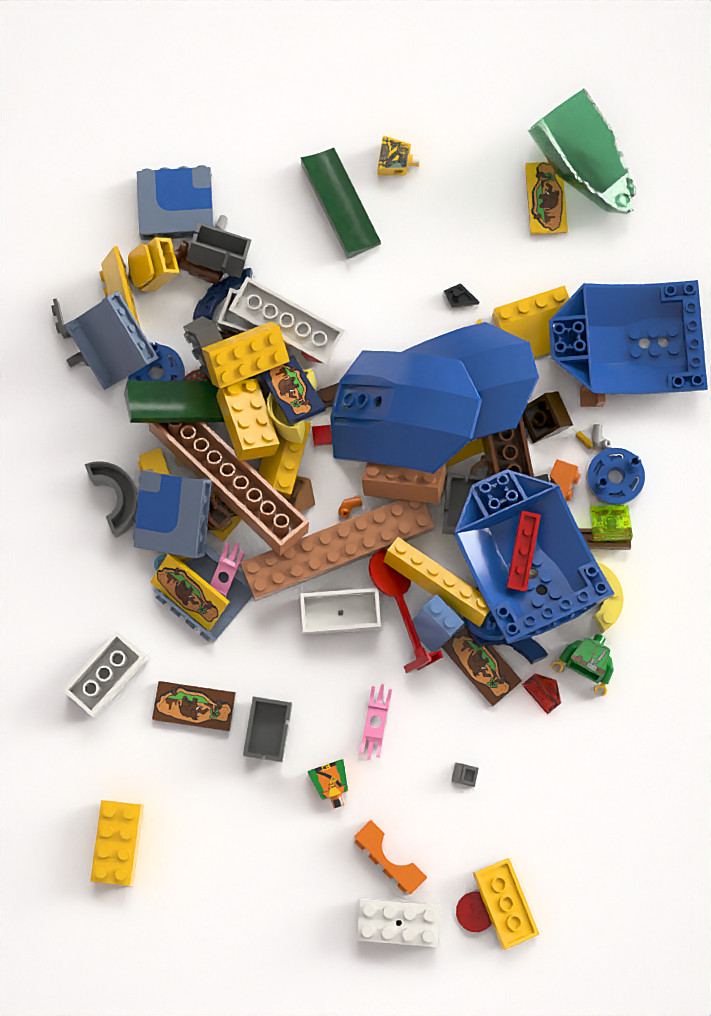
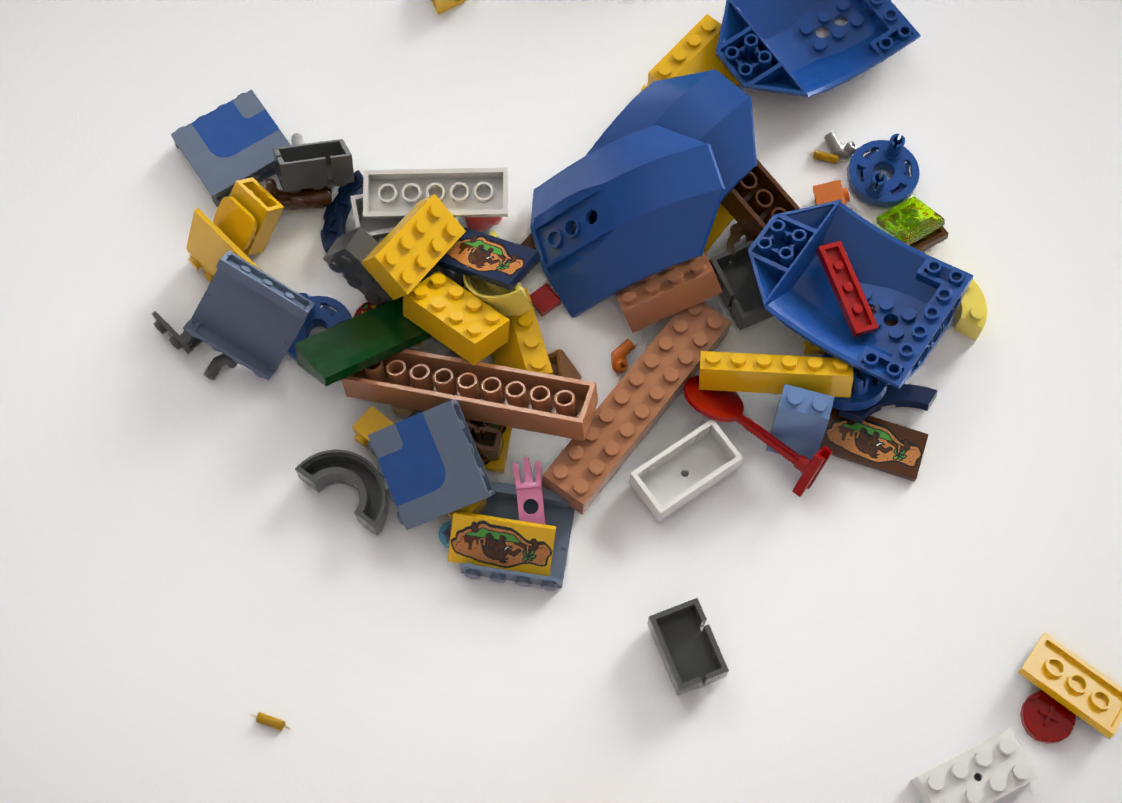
camera: 30 degrees left, 10 degrees down
(105, 674) = (459, 694): white brick -> none
(194, 706) = (583, 672): tile -> none
(330, 782) = (794, 665): torso -> none
(340, 202) = (415, 59): dark green arch -> none
(371, 733) = (802, 585): bright pink piece -> none
(408, 875) = (881, 702): orange arch -> none
(459, 296) = (602, 85): black piece -> none
(465, 774) = (933, 571): dark grey slope -> none
(544, 691) = (958, 433): clear red slope -> none
(546, 417) = (776, 150): dark brown slope -> none
(590, 399) = (804, 109): nougat panel -> none
(590, 660) = (985, 370): green torso -> none

